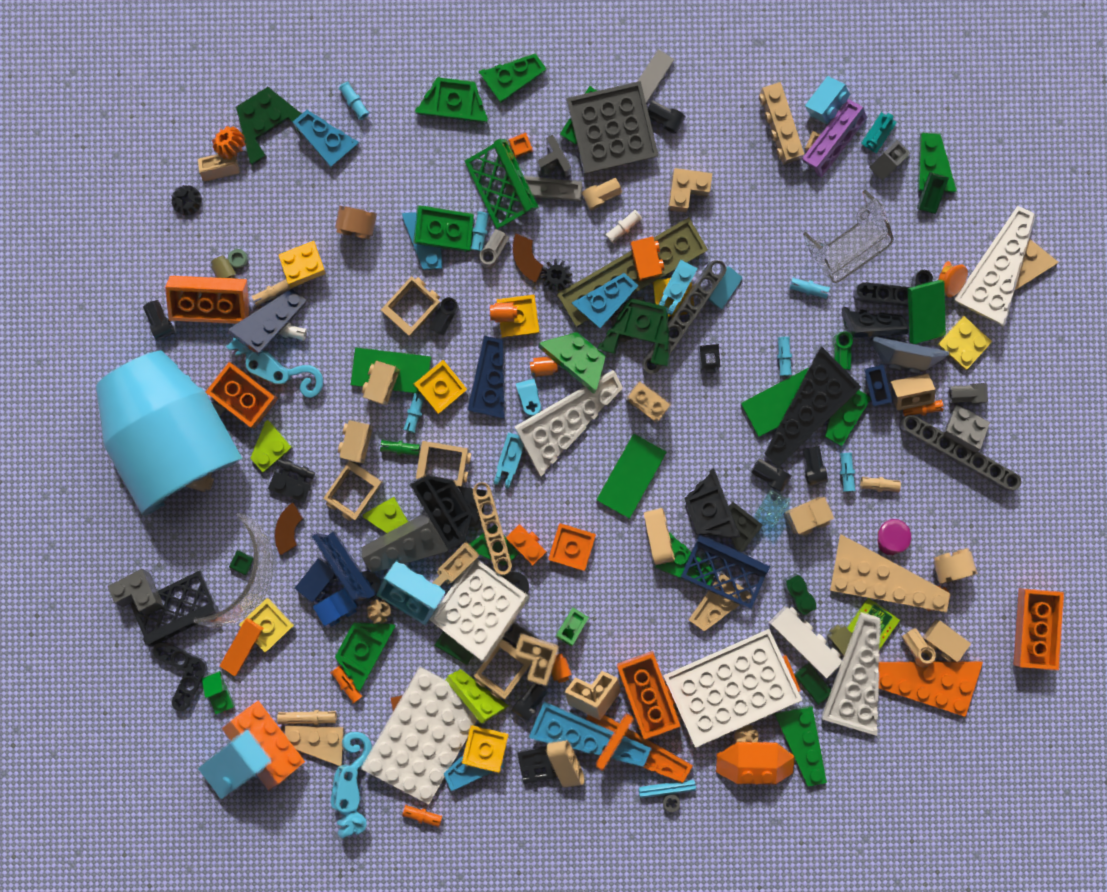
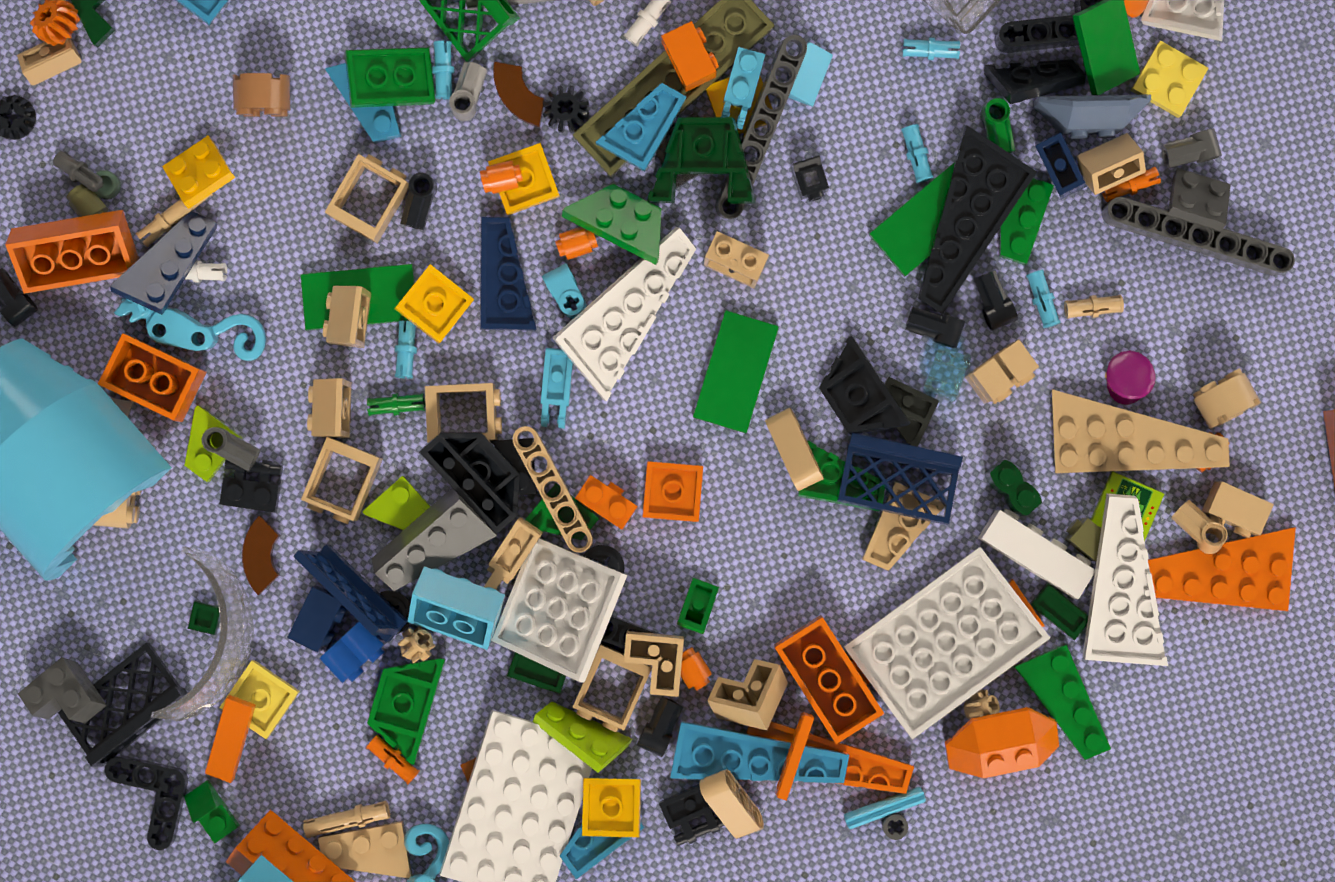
camera: 10 degrees left, 0 degrees up
(222, 246) = (78, 171): none -> dark grey axle
(285, 454) = (232, 449): none -> dark grey piece

